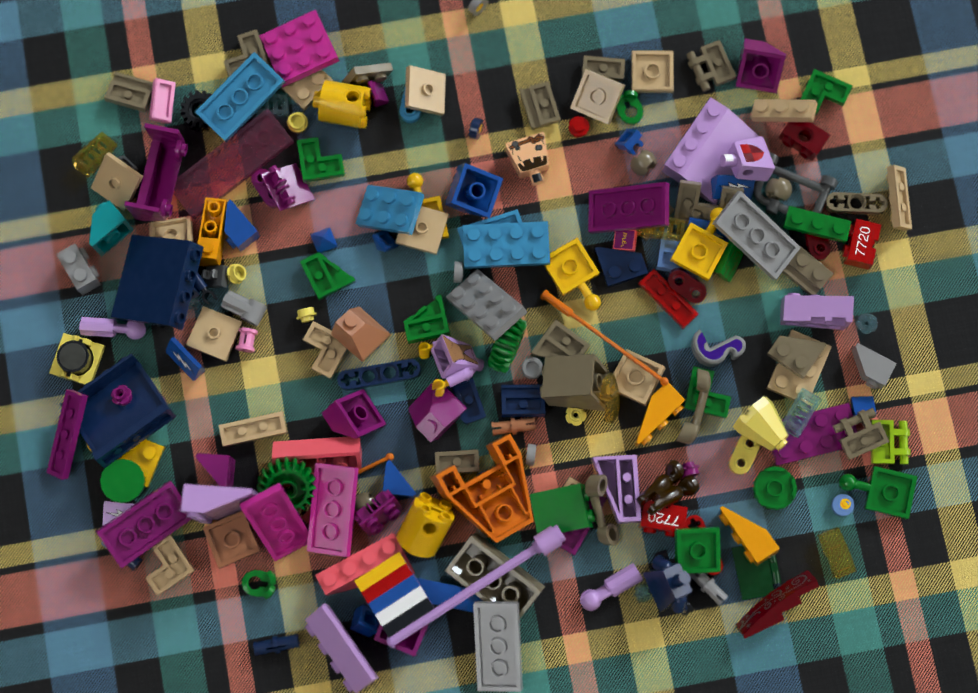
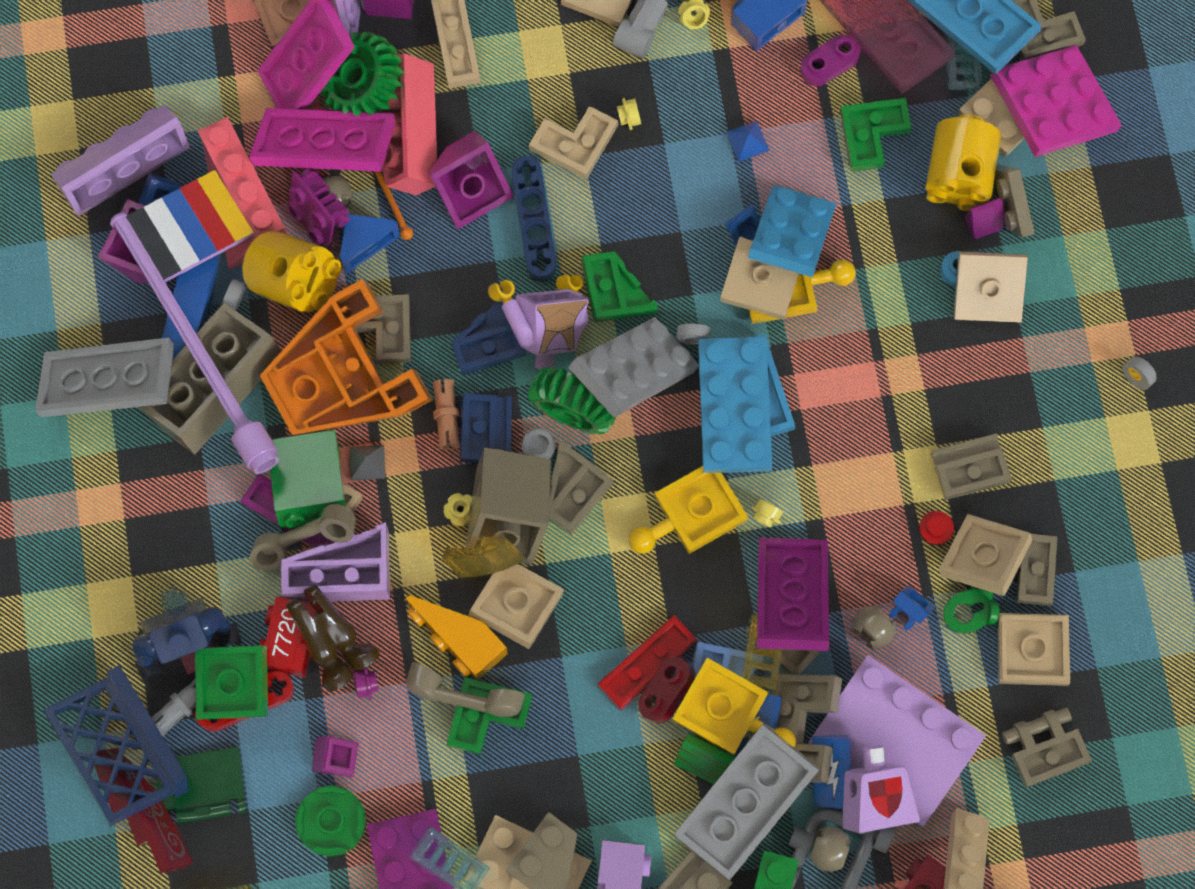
camera: 90 degrees right, 5 degrees down
(246, 340) = (591, 28): bright pink bush -> none
(266, 592) = (236, 56): green piece -> none
(276, 644) = (134, 72): dark blue pin -> none
(287, 186) = (829, 82): magenta hinge -> none
(297, 122) = (936, 102): light yellow plate -> none
(325, 276) = (690, 140): green wing -> none
(359, 333) = (599, 187): nougat slope -> none
(435, 414) = (462, 295): magenta slope -> none
(436, 566) = (234, 294): none -> light grey tile
(473, 191) = (823, 358): blue slope -> none
(476, 128) = (929, 365): dark blue tile -> none
(529, 157) = (882, 447): light nougat torso -> none
(531, 452) = (399, 437): light grey tile -> none
(545, 475) = (367, 462): none -> dark grey slope
(569, 312) = (626, 502): orange piece -> none
(572, 227) = (767, 513): none -> light yellow plate
(613, 586) = (187, 556): lavender piece -> none
(620, 265) = (703, 587): dark blue wing -> none
(625, 240) = (742, 595): magenta tile -> none
(716, 355) = (552, 736): light grey animal -> none
(730, 604) = (146, 737): none -> dark blue fence
(735, 488) = (335, 756): none -> magenta slope
(744, 453) = (387, 774): light yellow plate -> none
(755, 539) = (245, 777): light orange slope -> none
(760, 66) = (1047, 826): magenta slope -> none
(763, 425) = (427, 796): light yellow cone -> none

